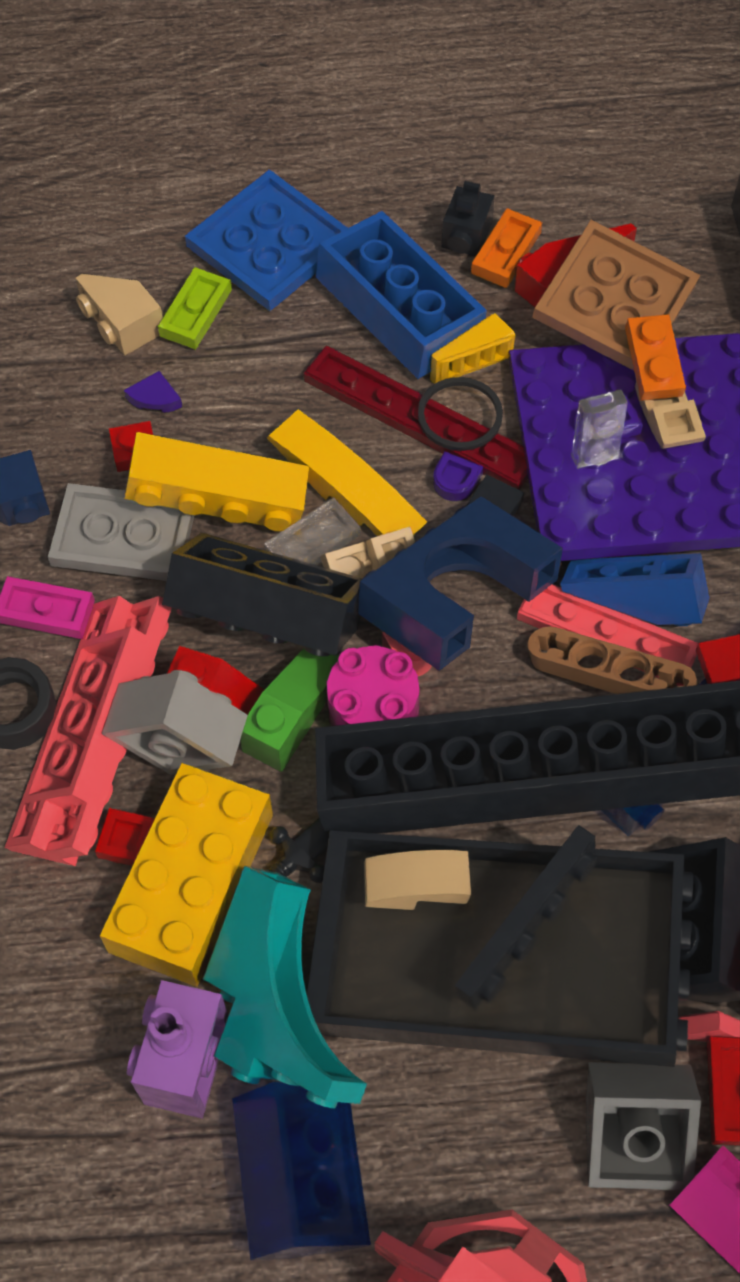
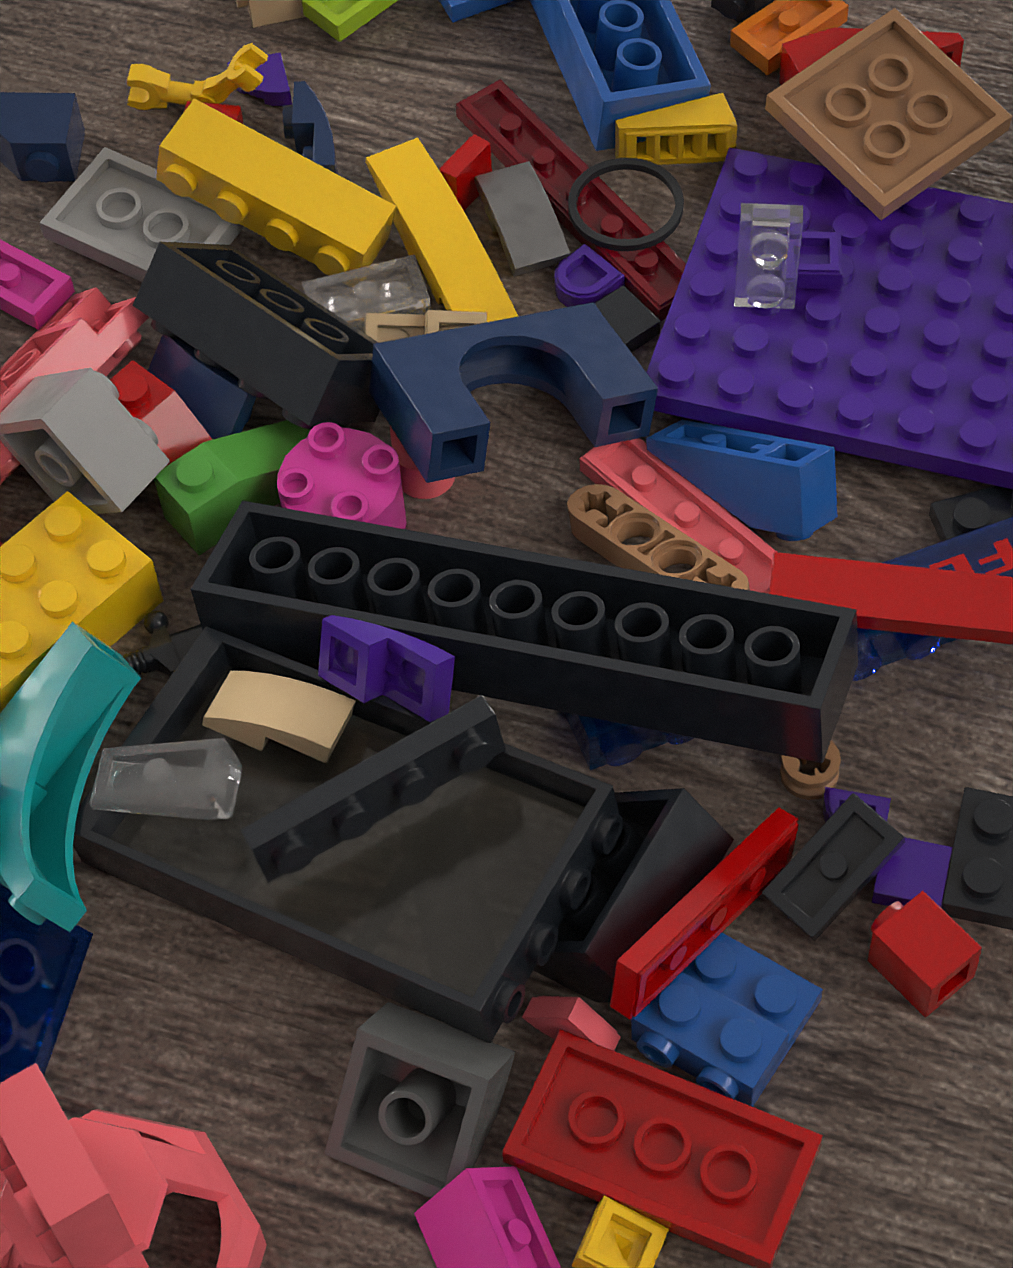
camera: 25 degrees right, 5 degrees down
(80, 425) = (155, 90): none -> yellow piece
(214, 425) = (309, 127): none -> dark blue slope
(241, 649) = (206, 390): none -> dark blue slope
(341, 418) = (461, 168): none -> red tile
(364, 959) = (169, 779): none -> clear slope
(394, 443) = (522, 217): none -> flat silver slope
(476, 818) = (382, 661): none -> dark purple slope
(655, 357) = (896, 197): orange plate -> none
(673, 420) = (889, 268): tan slope -> none

